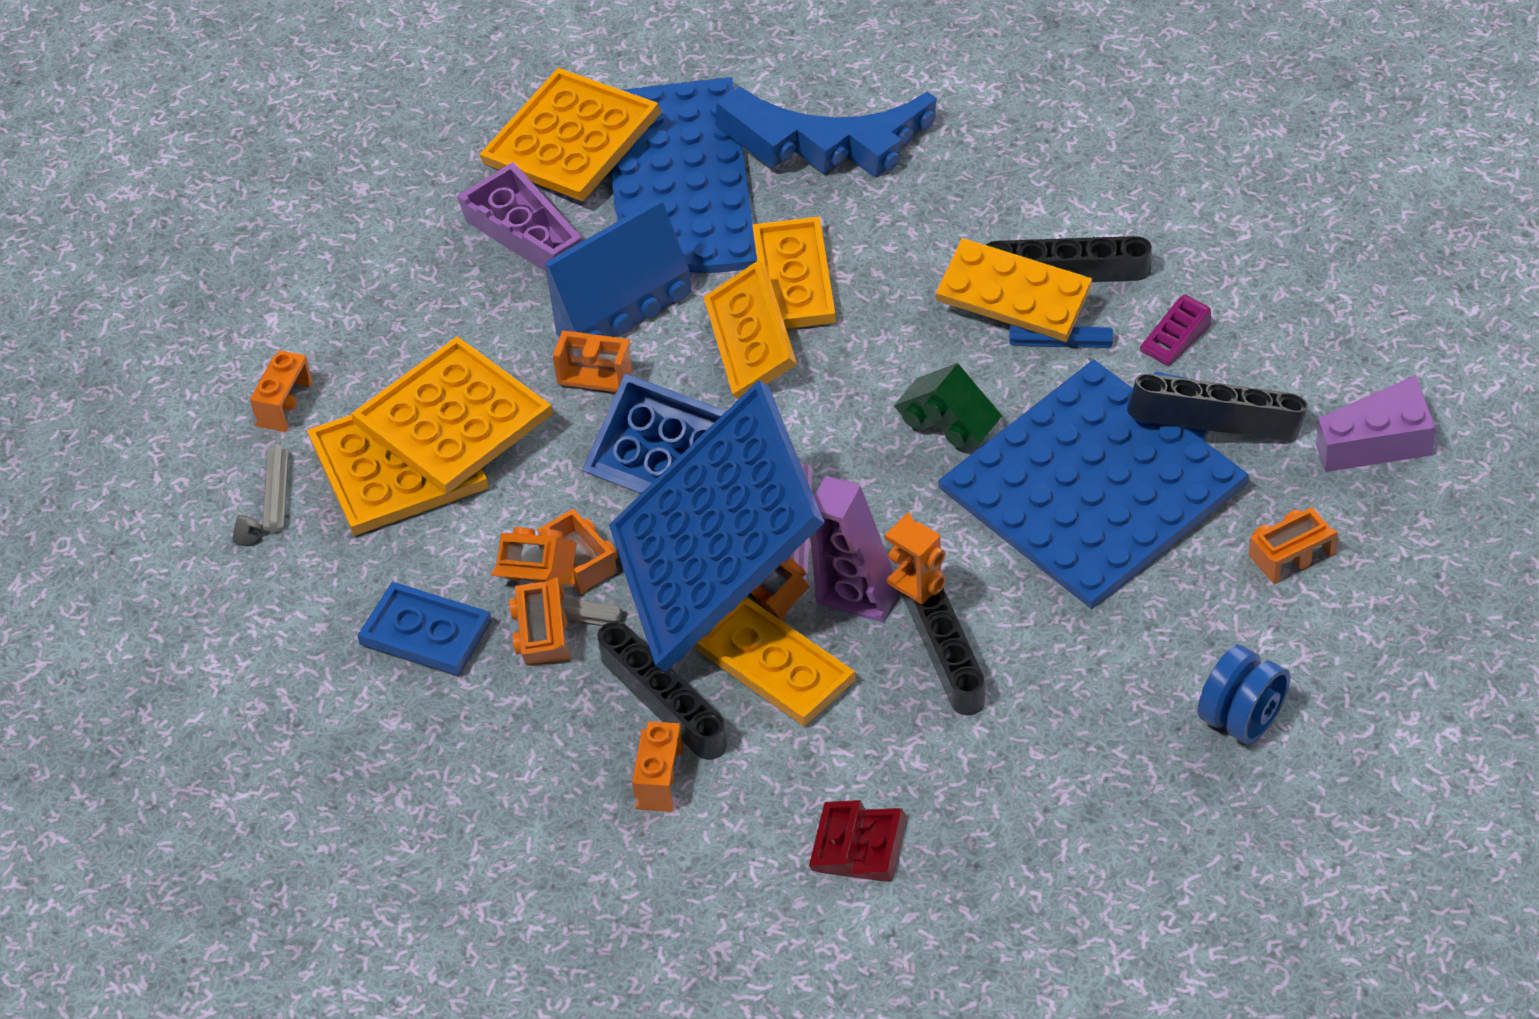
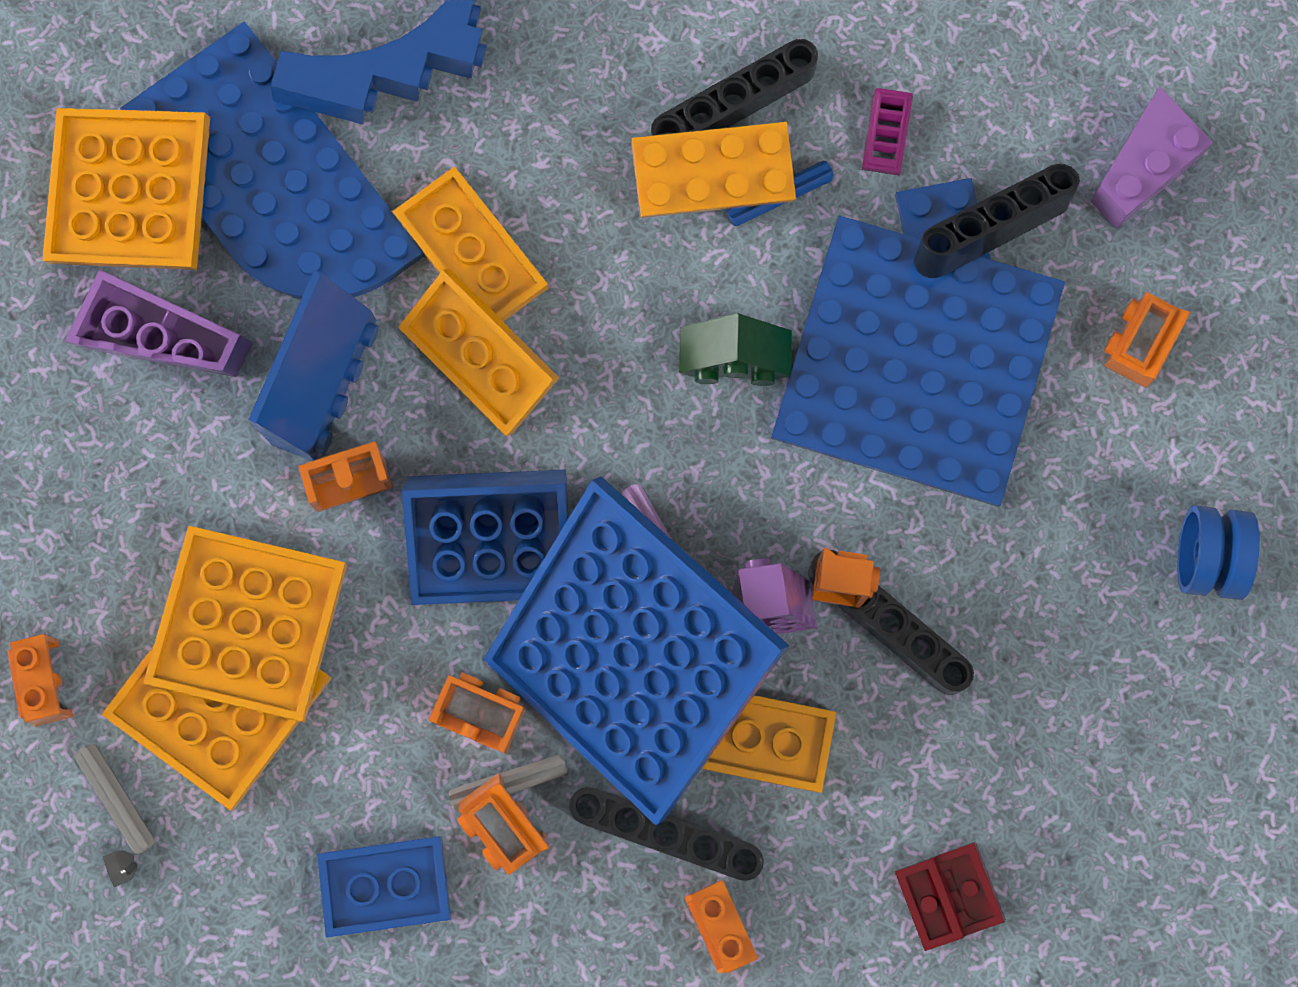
camera: 35 degrees left, 30 degrees up
(535, 556) = (451, 759): orange window -> none

